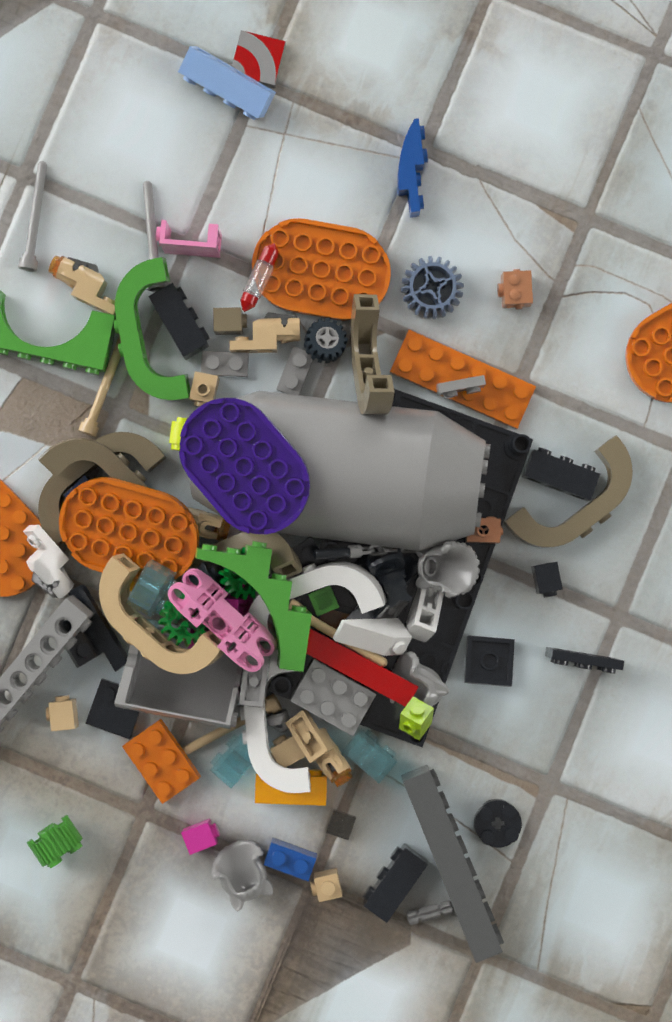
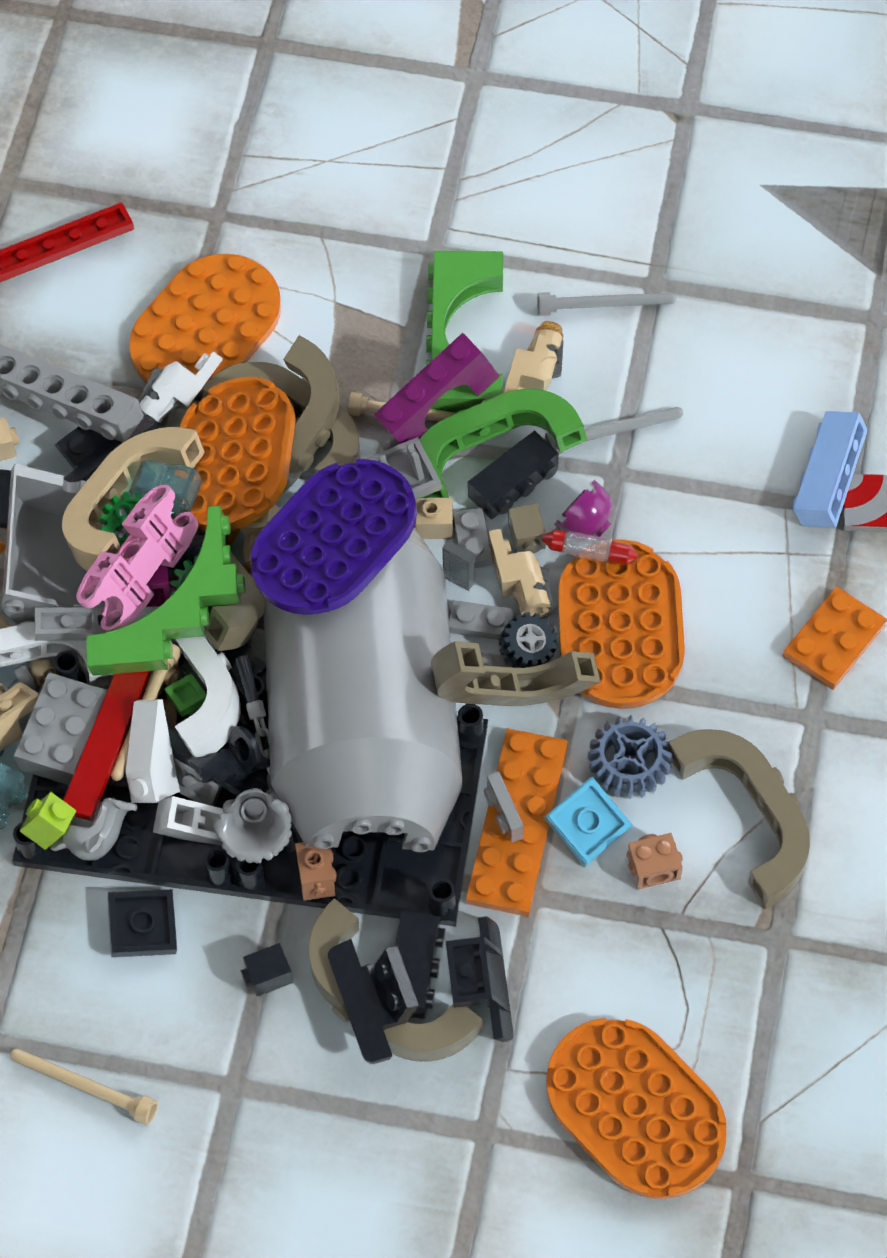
camera: 80 degrees right, 25 degrees down
(101, 352) = (456, 365): none -> magenta arch
(169, 404) = (413, 464): none -> light grey plate
(191, 248) = (619, 483): bright pink panel -> none
(226, 274) = (588, 512): none -> magenta cylinder
(254, 378) = (458, 565): none -> dark grey tile
(363, 117) = (834, 637): none -> orange plate
(412, 160) = (793, 698): blue slope -> none
(476, 329) = (588, 821): none -> medium azure tile
(493, 191) = (781, 809): none -> dark tan arch
(583, 430) = (480, 976): none -> black plate
(584, 660) = (162, 1033): black plate -> none
(589, 506) = (374, 996): none -> black plate
(626, 683) = (141, 1108): none -> tan piece

